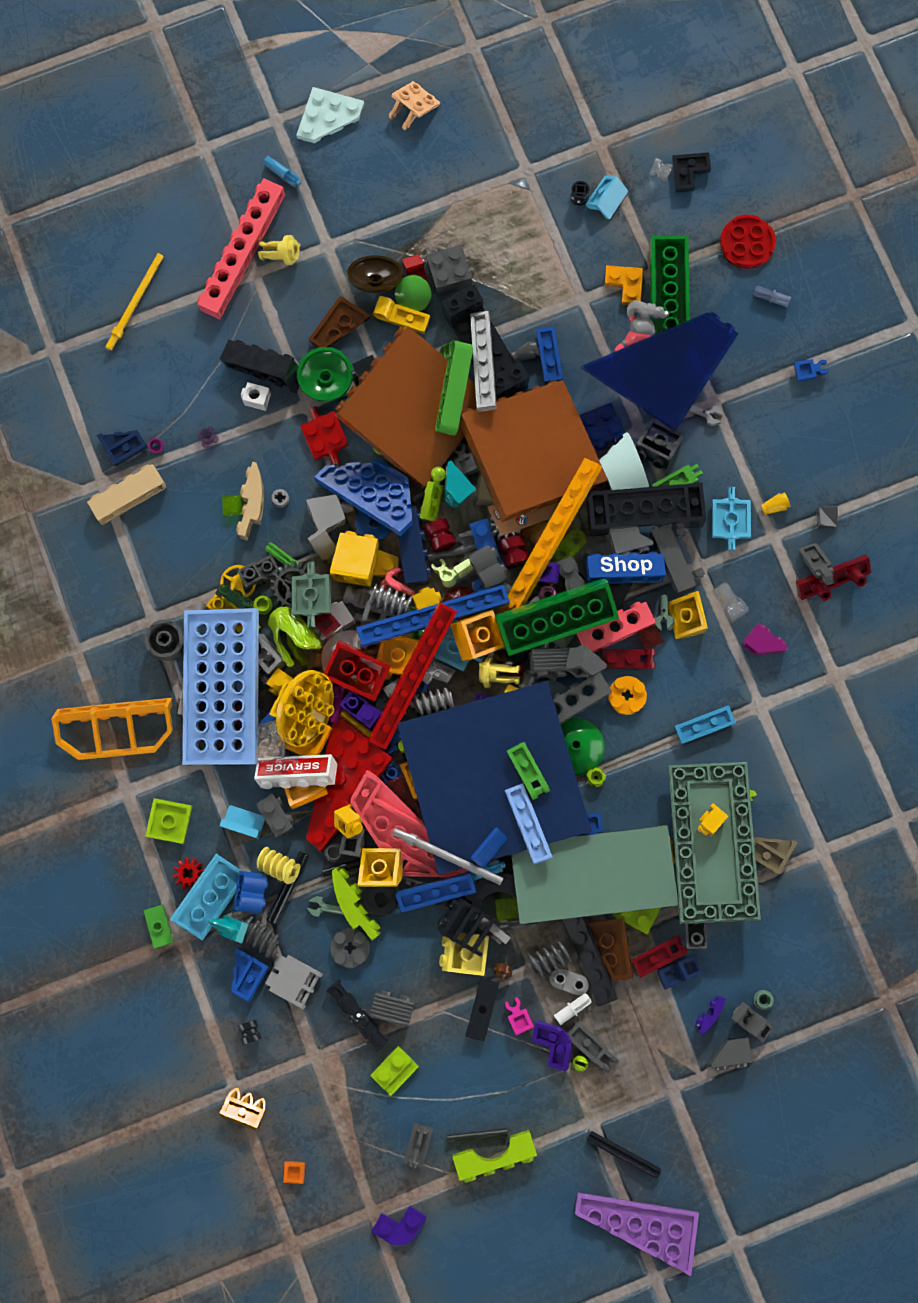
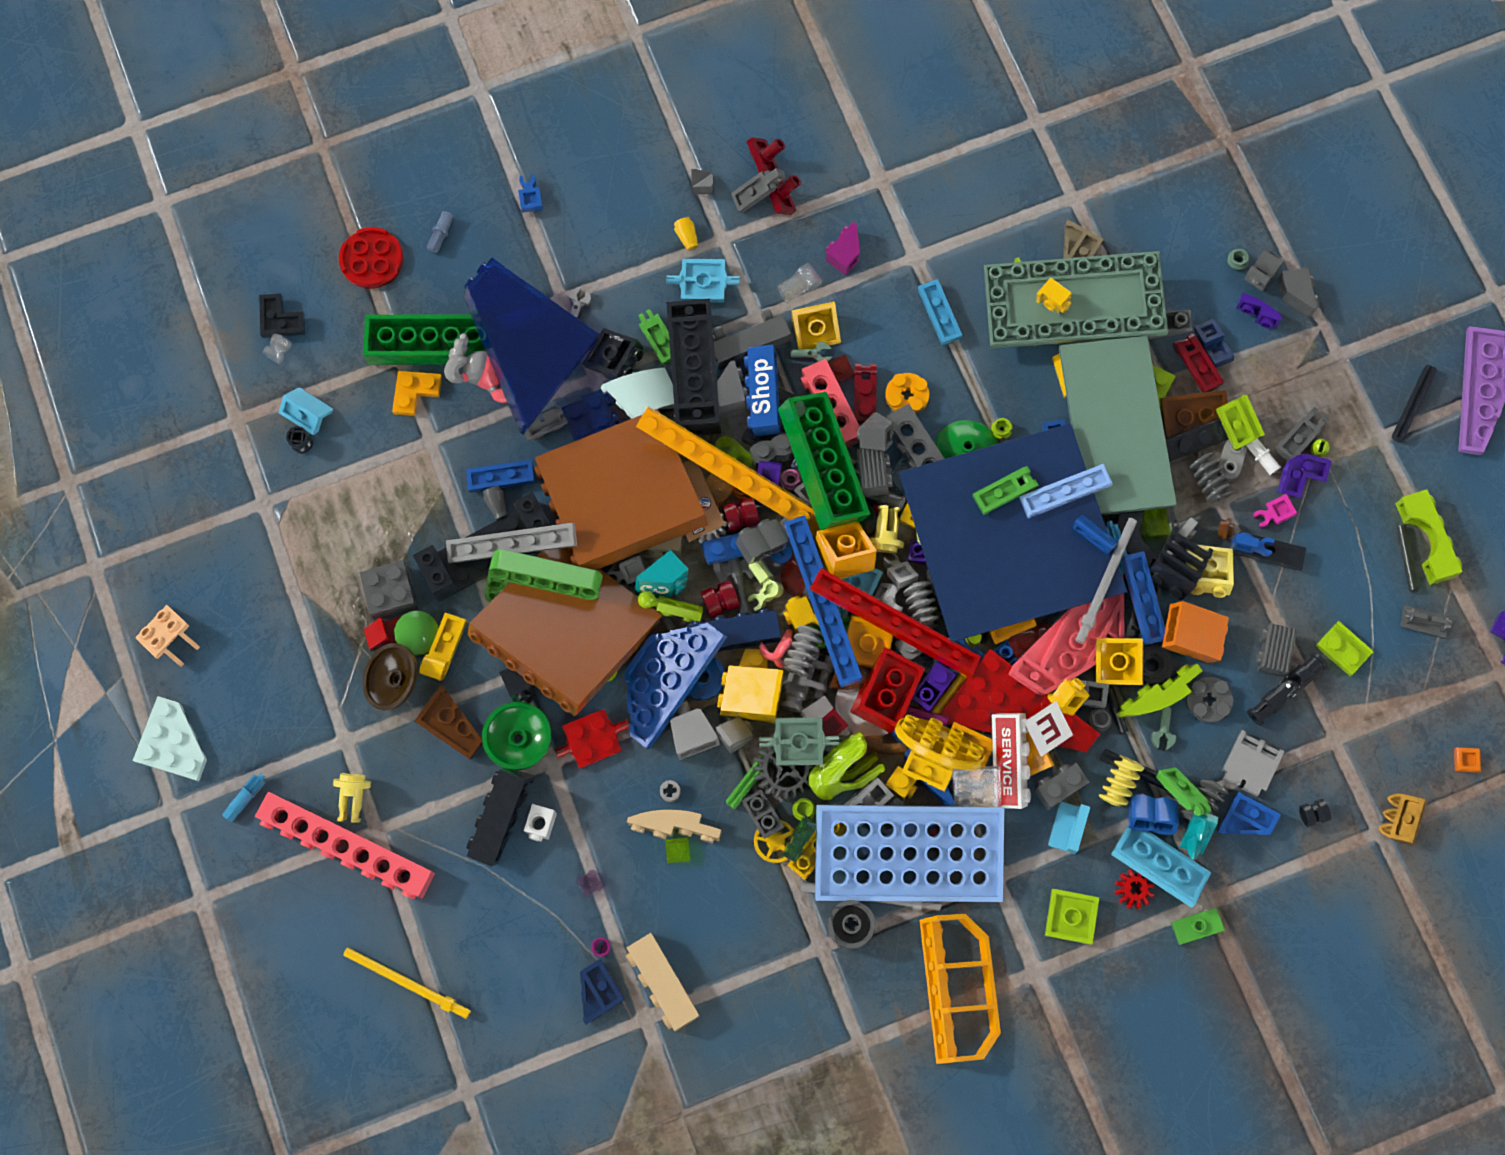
camera: 90 degrees left, 5 degrees down
(266, 916) = (1184, 791): none -> bright green hinge
(319, 802) = (1048, 728): none -> white sticker
(406, 936) = (1195, 632): none -> orange brick
(462, 684) = (900, 573): none -> light grey plate
(487, 985) = (1247, 543): none -> blue plate
(598, 395) = (552, 421): none -> dark grey hinge
(598, 987) = (1240, 422): none -> lime plate

